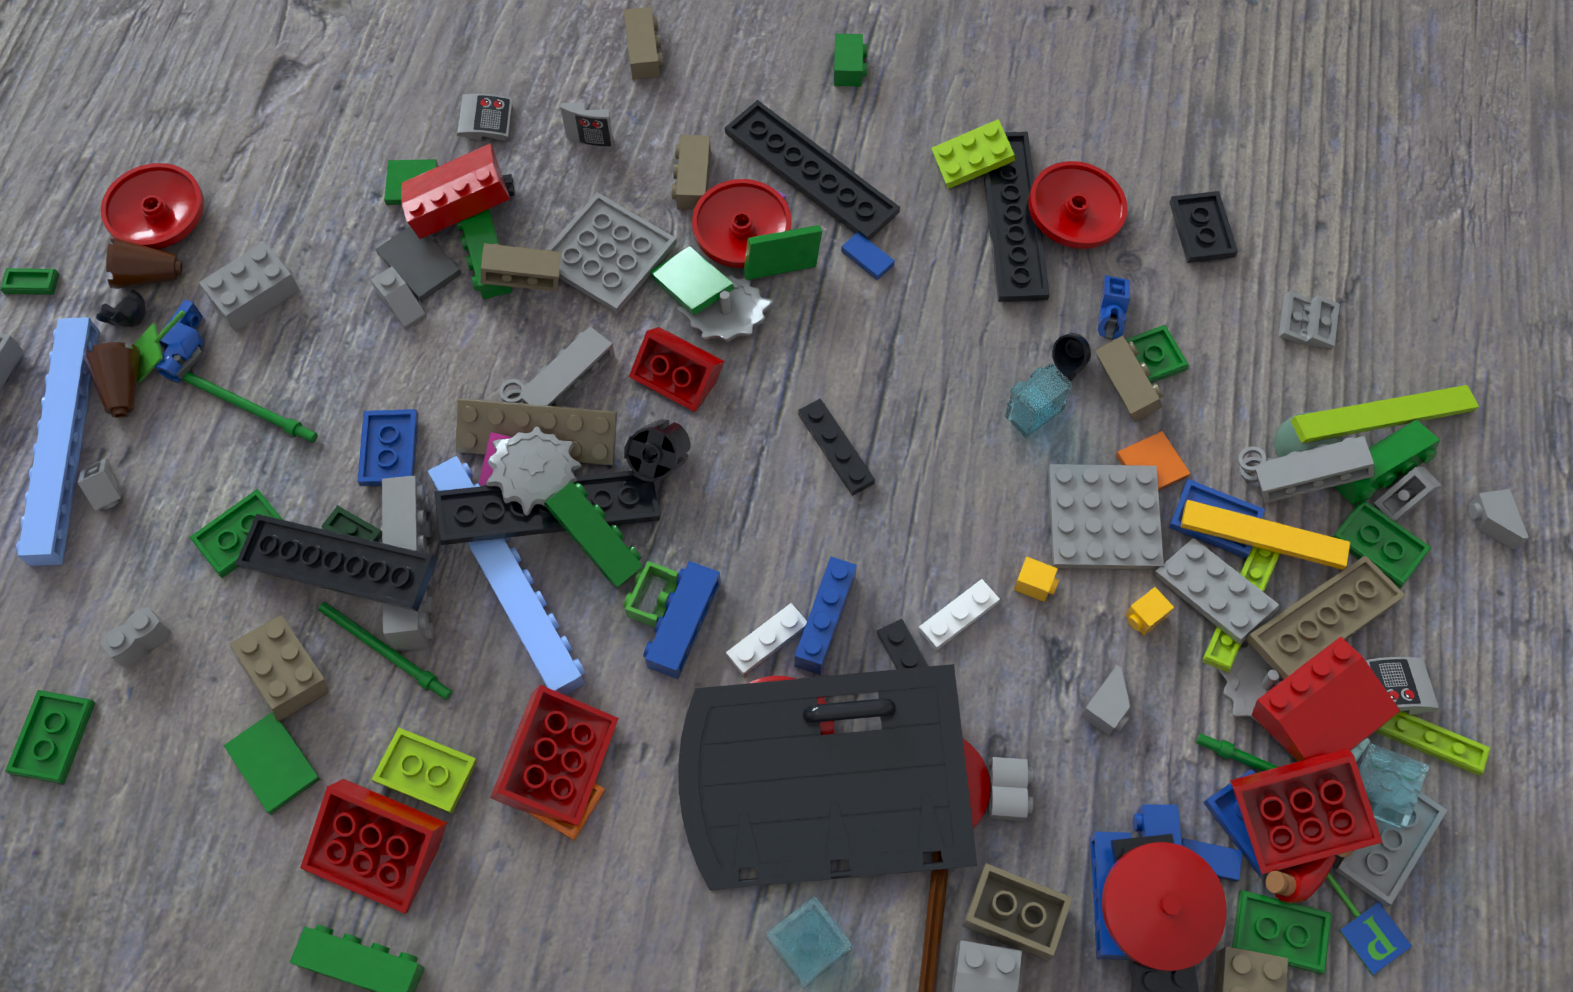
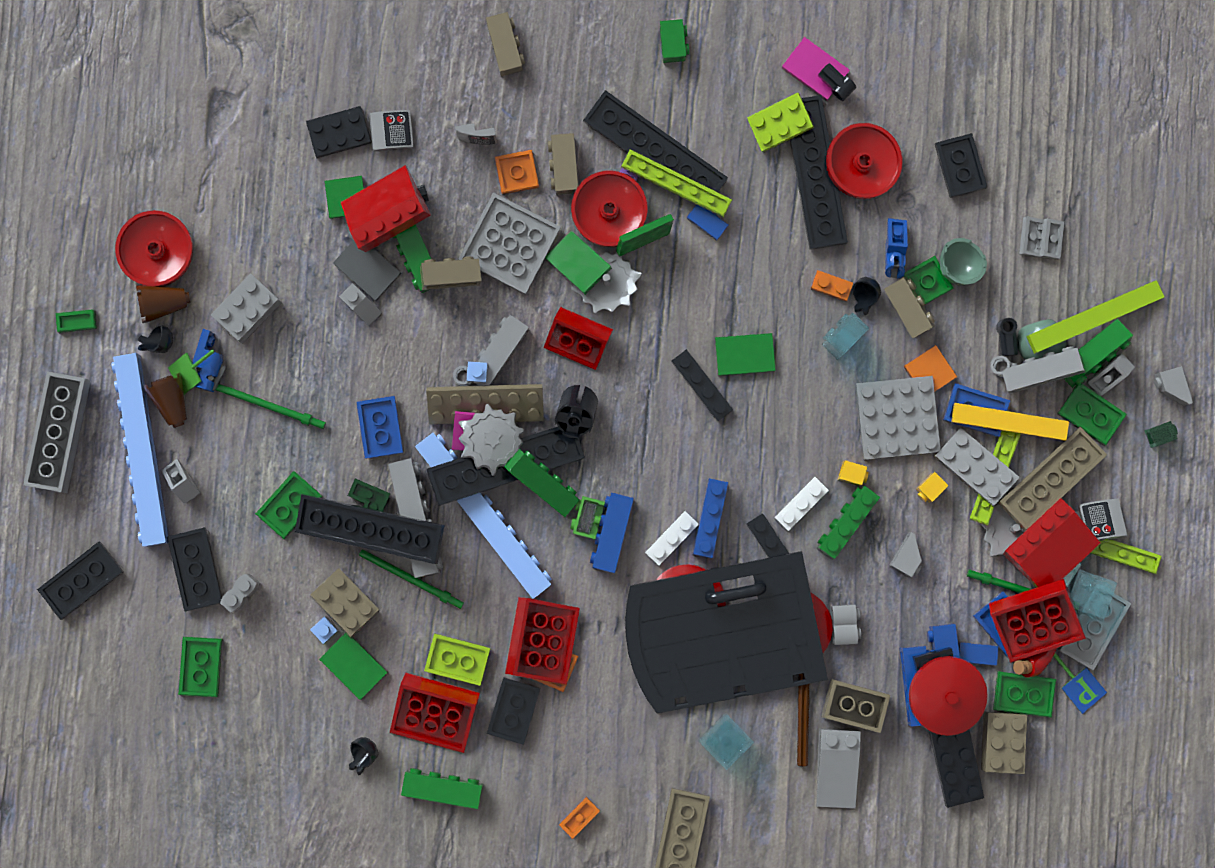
camera: 10 degrees left, 20 degrees up
(83, 599) = (195, 569): none -> black plate
(242, 706) = (324, 630): none -> light blue plate
(252, 891) = (364, 754): none -> black piece
(419, 113) = (338, 132): none -> black plate
(492, 857) = (513, 710): none -> black plate
(531, 387) = (477, 372): none -> light blue plate
(632, 178) = (516, 172): none -> orange tile
(833, 204) = (676, 183): none -> lime tile
(899, 415) = (745, 354): none -> green tile
(1022, 107) = (806, 64): none -> dark pink tile
(1024, 346) = (831, 285): none -> orange plate
(1024, 644) = (850, 519): none -> green brick
(1052, 122) = (840, 85): none -> black piece
(1202, 330) = (962, 262): none -> sand green cylinder
(1262, 432) = (1007, 340): none -> black piece
(1482, 578) = (1161, 434): none -> clear green brick

